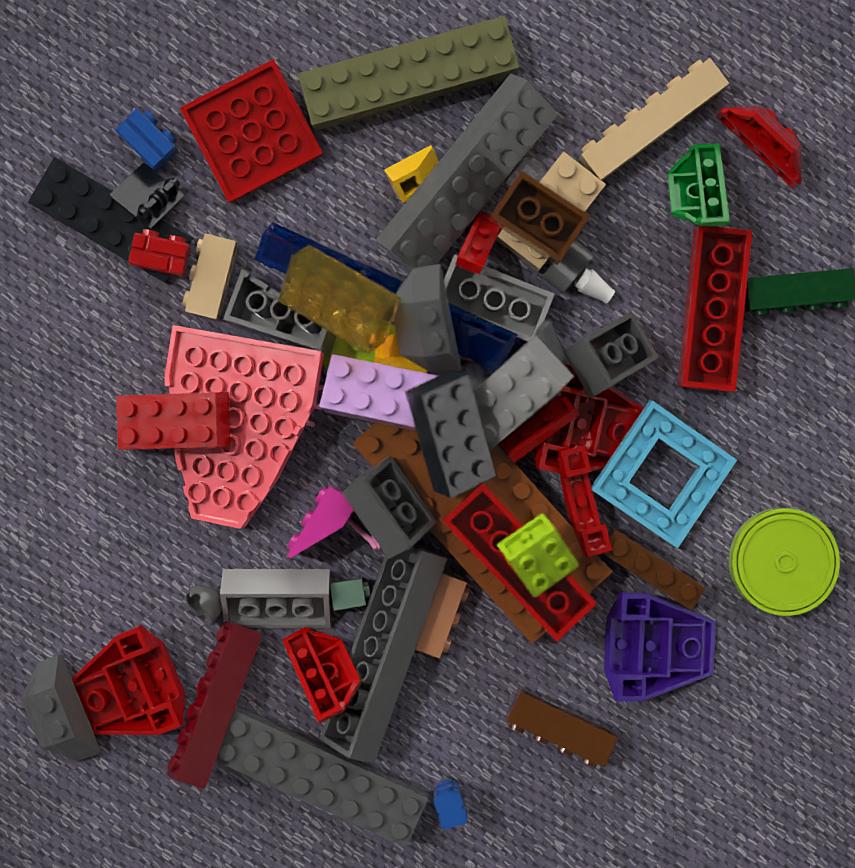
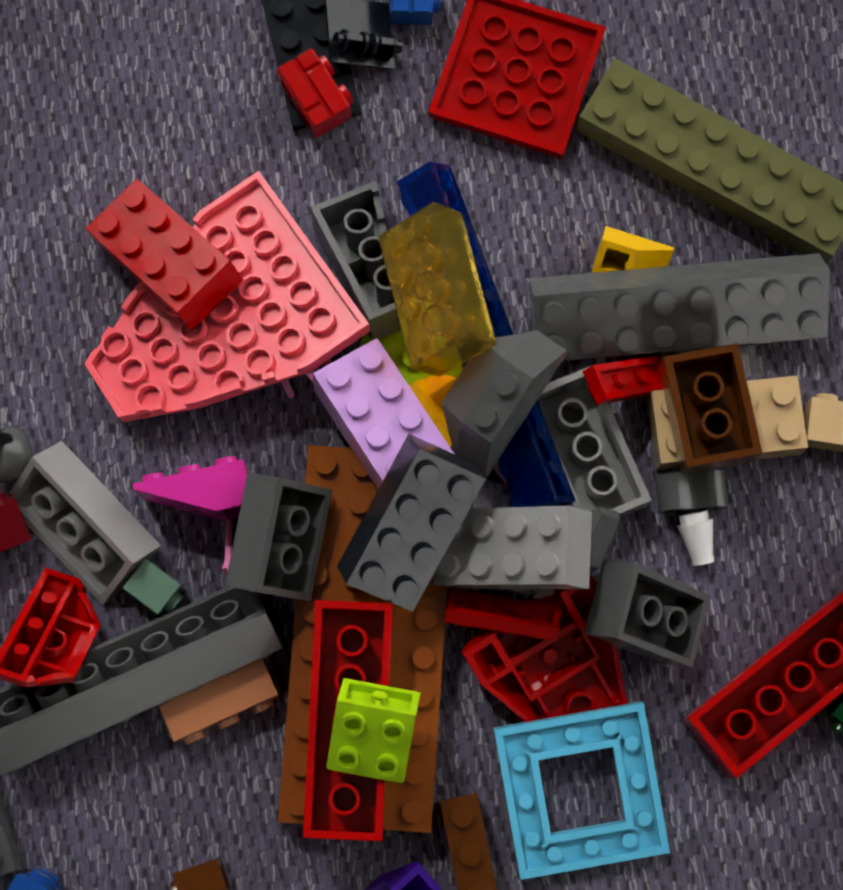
camera: 40 degrees right, 10 degrees down
(210, 276) = (340, 162): tan brick -> none
(581, 503) = (470, 730): red slope -> none

